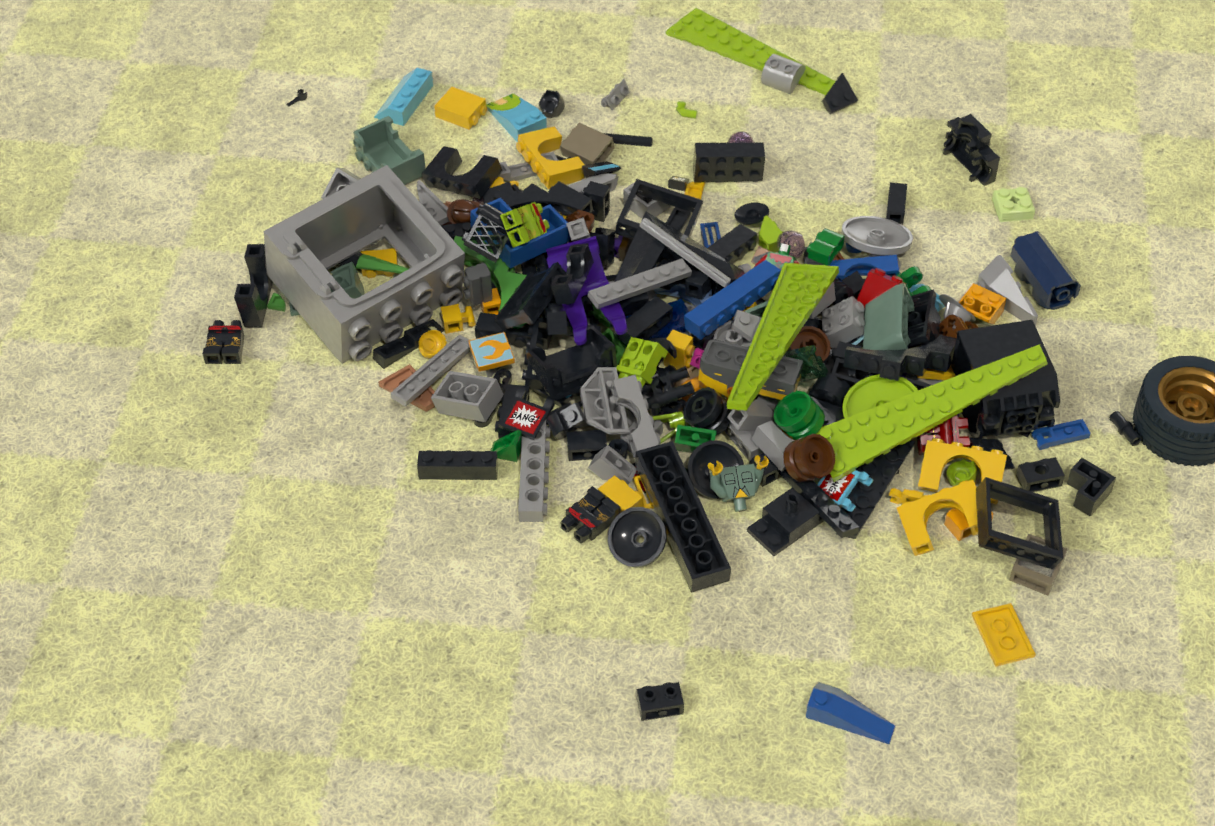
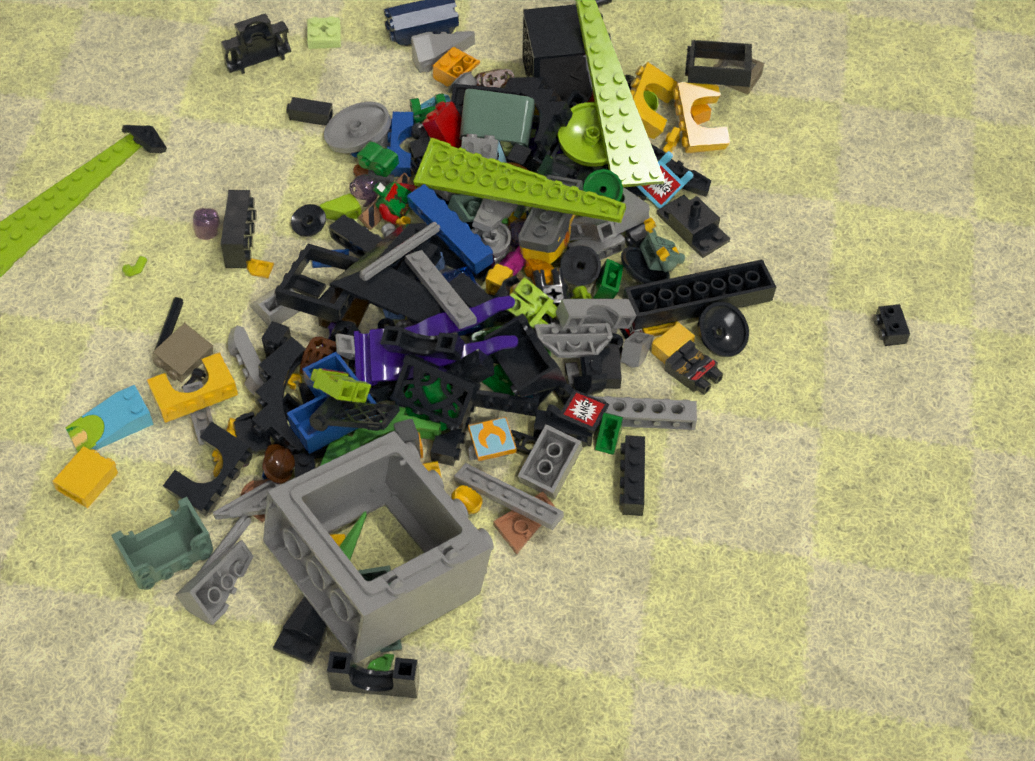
camera: 90 degrees left, 5 degrees up
(224, 342) = (447, 713): black hips -> none
(301, 96) = (16, 661): black hand -> none
(407, 96) = (49, 537): medium azure slope -> none
(551, 103) = (101, 384): black hair -> none
(599, 168) = (223, 340): black slope -> none
(616, 95) = (89, 324): light grey hinge -> none
(678, 183) = (247, 279): black slope -> none
(782, 73) = (103, 177): light grey brick -> none
(809, 458) = (652, 187): reddish brown wheel -> none
(828, 509) = (680, 196): black plate -> none
(840, 710) = (885, 207): blue wedge -> none
(1003, 634) = (802, 104): yellow tile -> none
(1040, 475) = (645, 52): black brick -> none
(1092, 485) = (661, 26): black brick -> none

